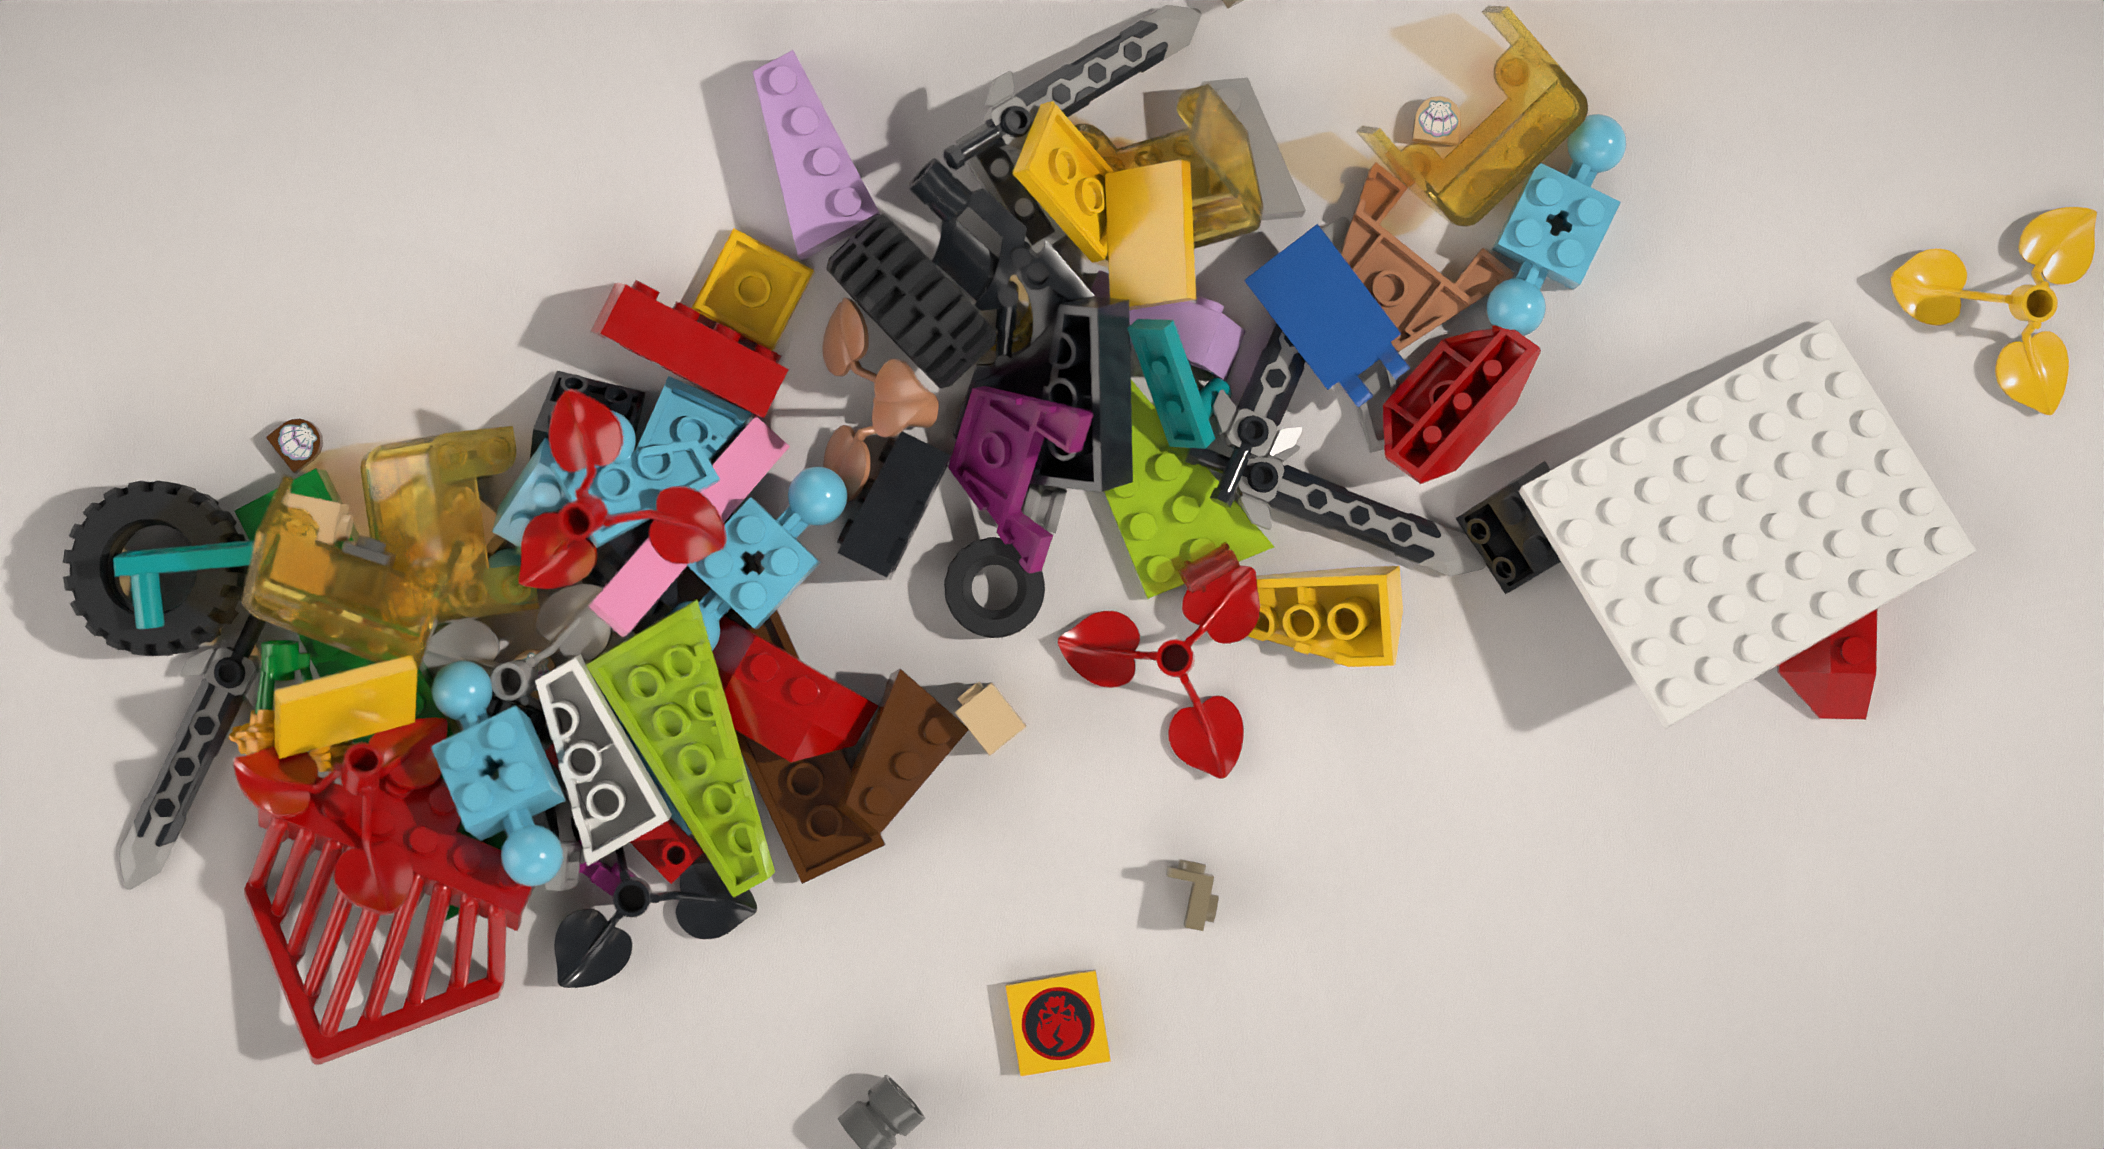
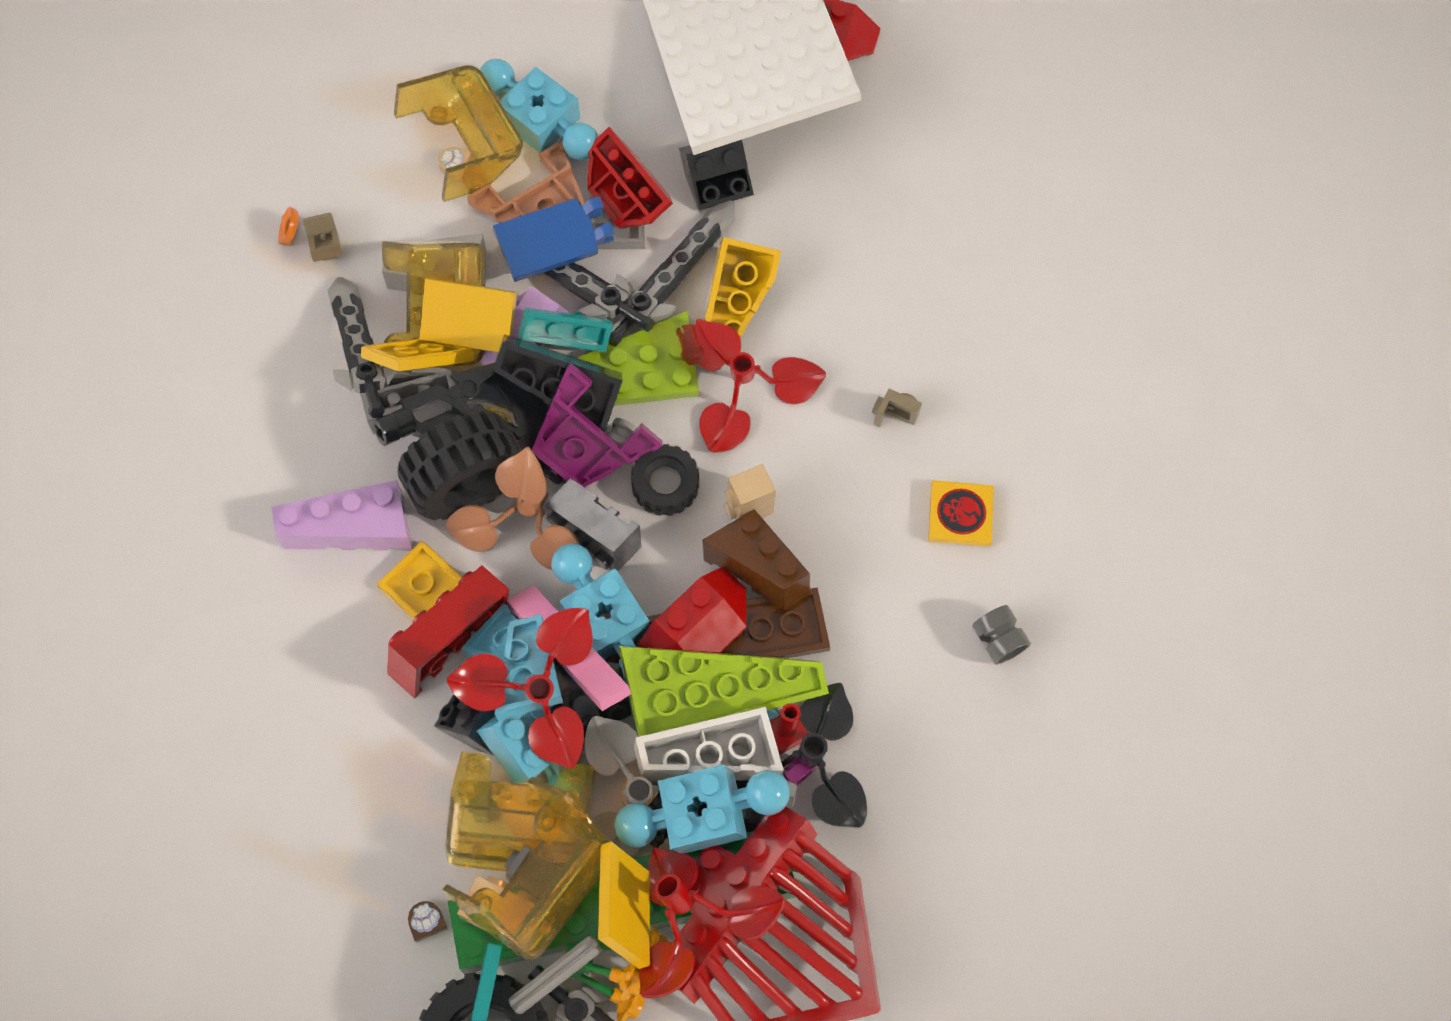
camera: 80 degrees left, 20 degrees down
(243, 639) = (554, 975): none -> light grey axle

